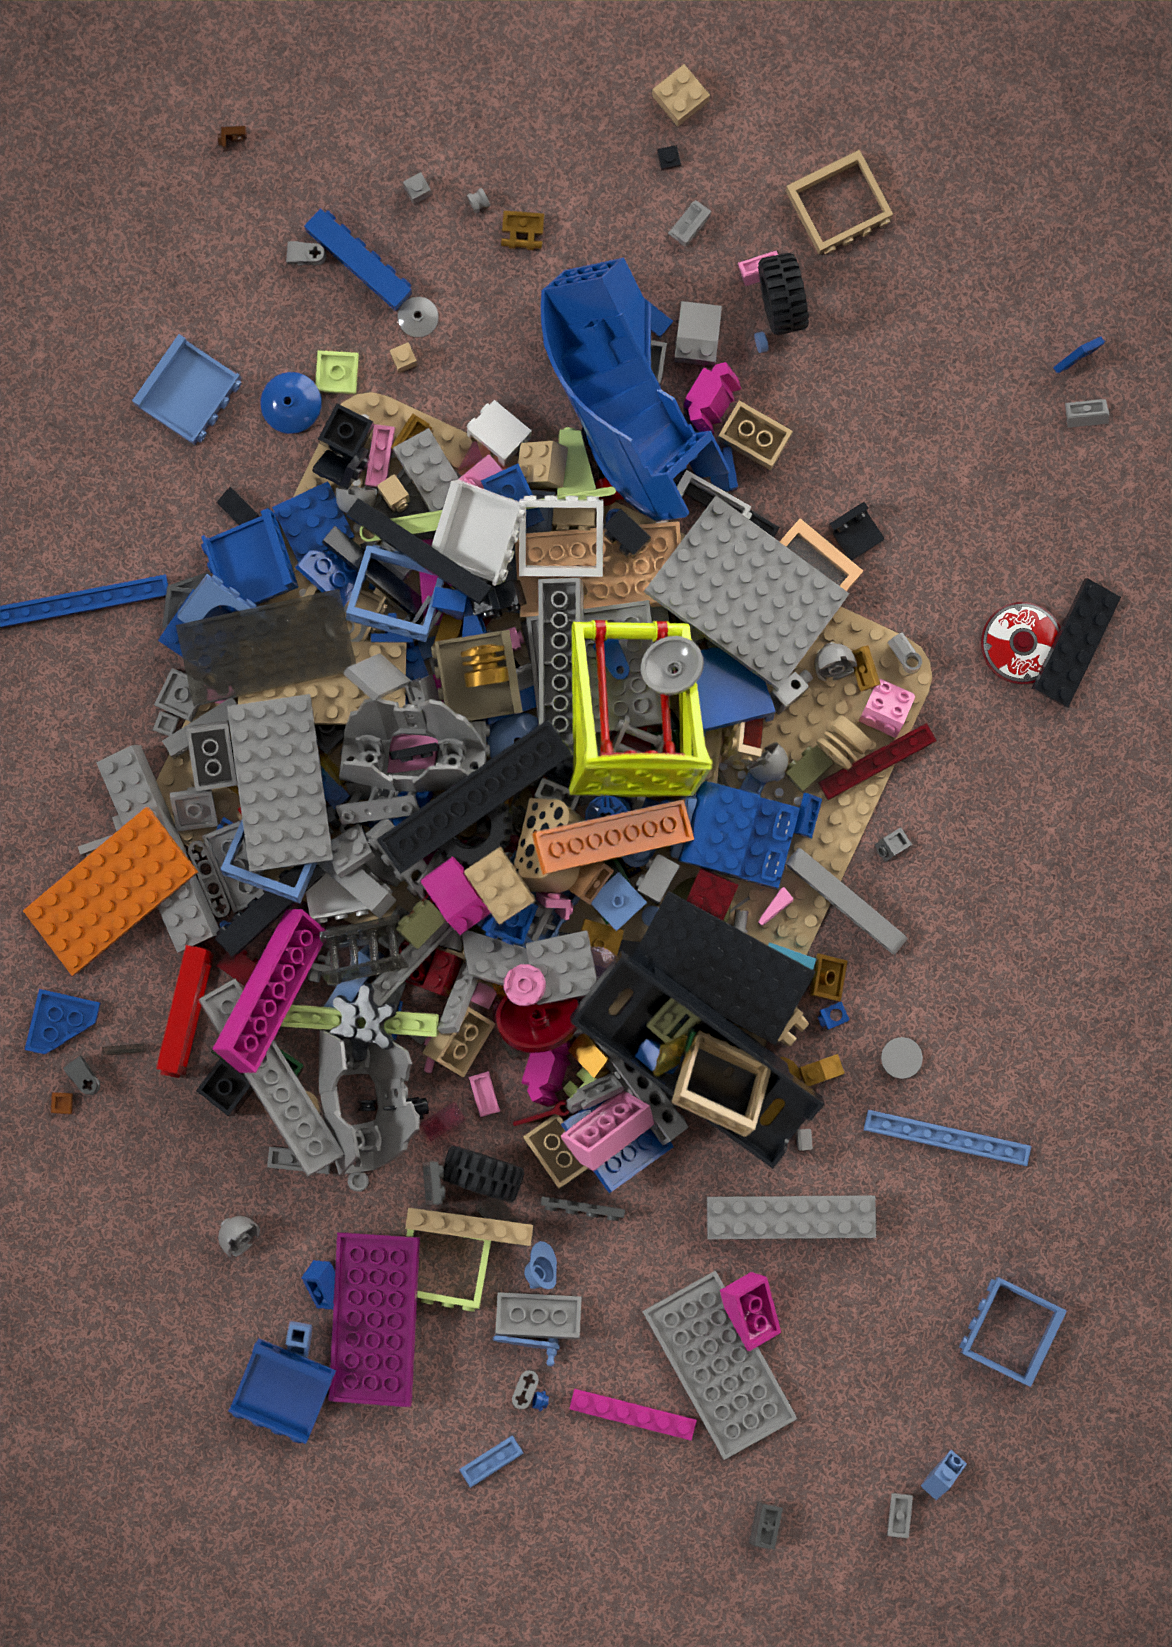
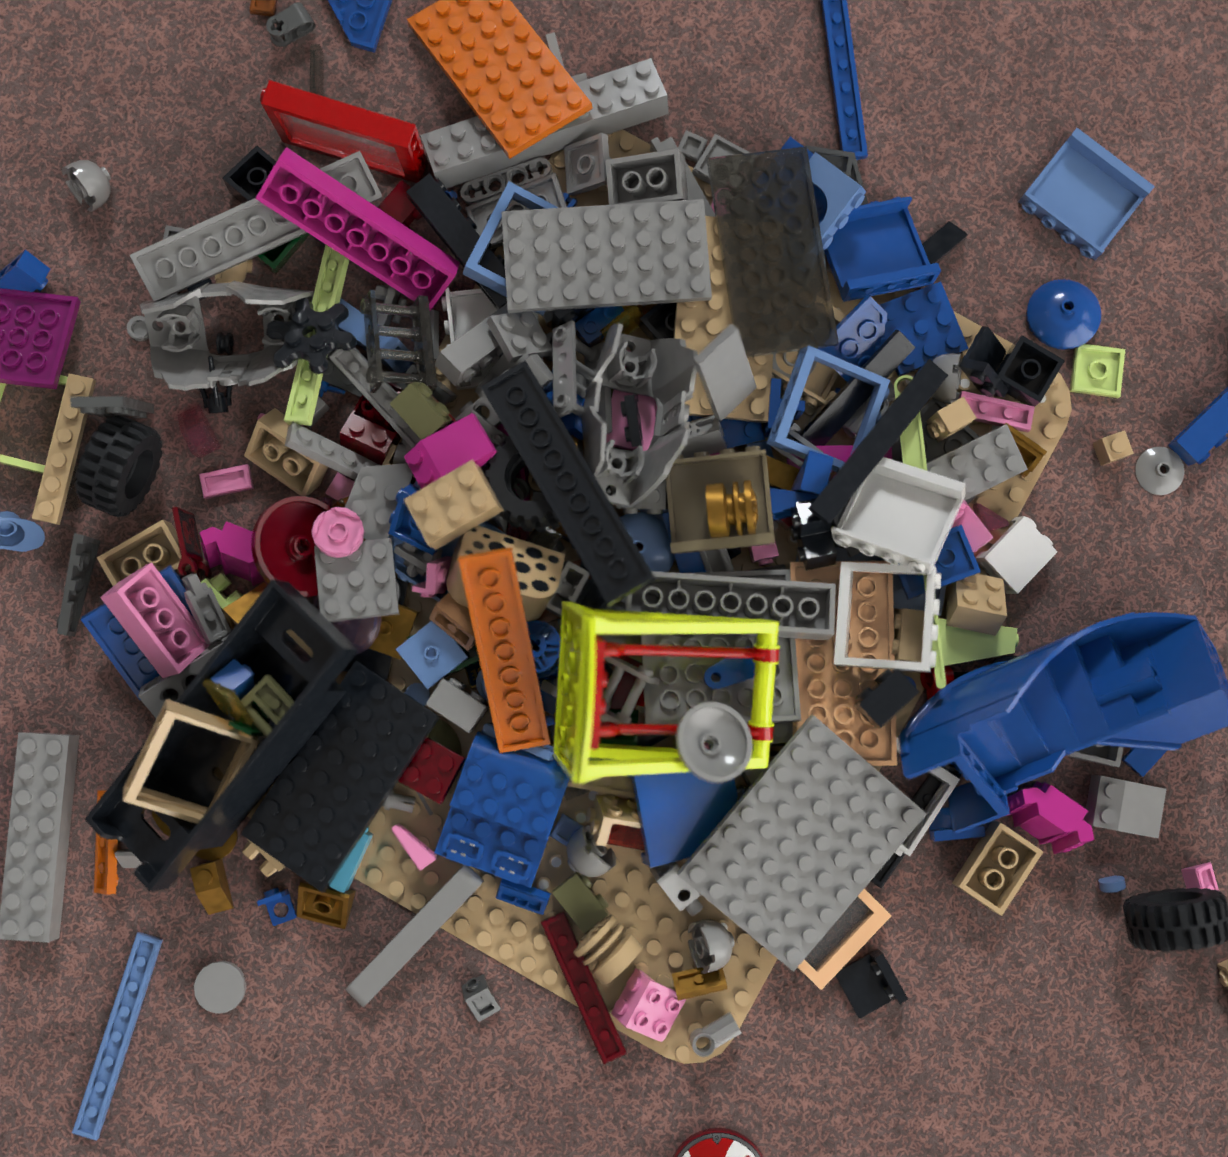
camera: 90 degrees right, 0 degrees up
(796, 1162) = (105, 862): none -> orange plate

